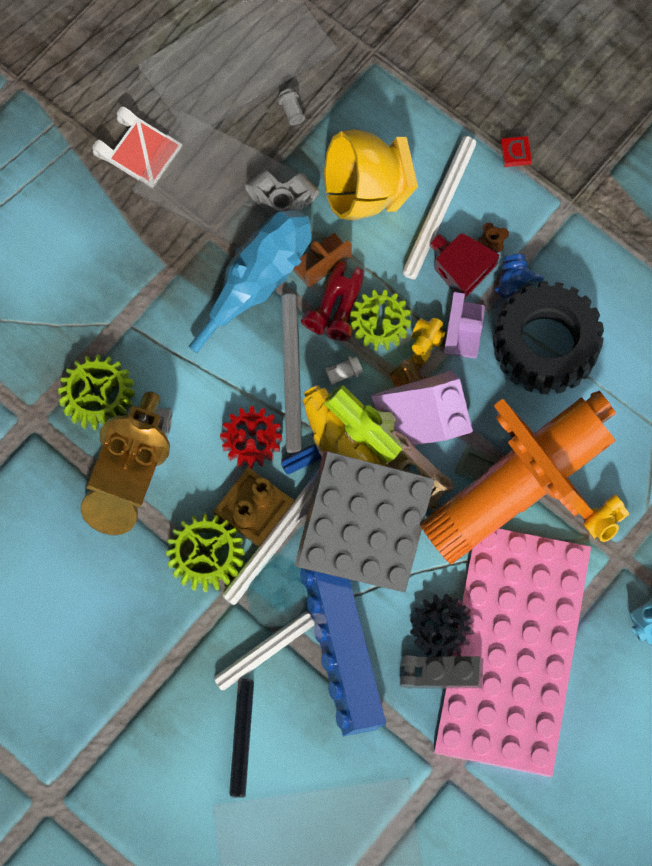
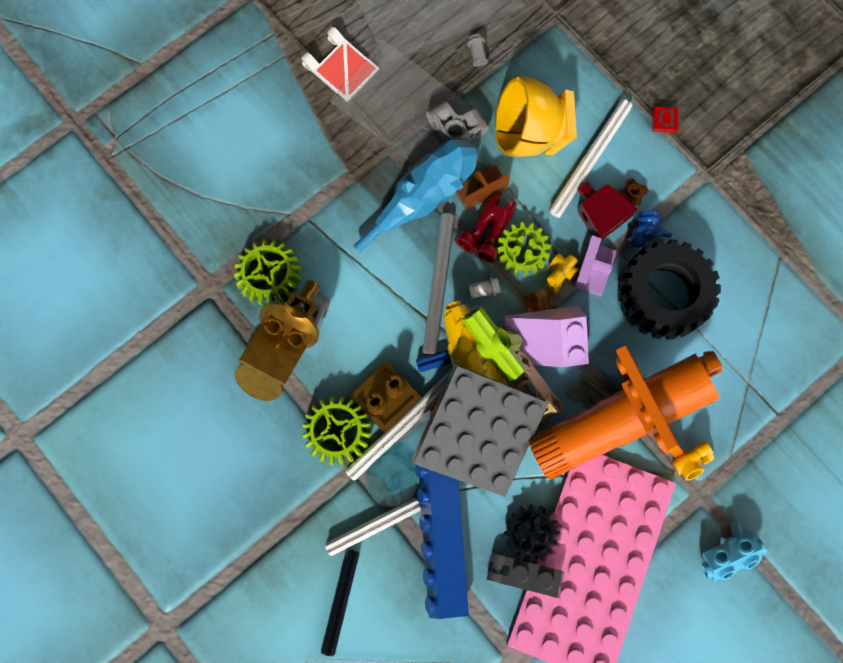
camera: 10 degrees right, 5 degrees up
(251, 420) = (379, 332): red gear -> none

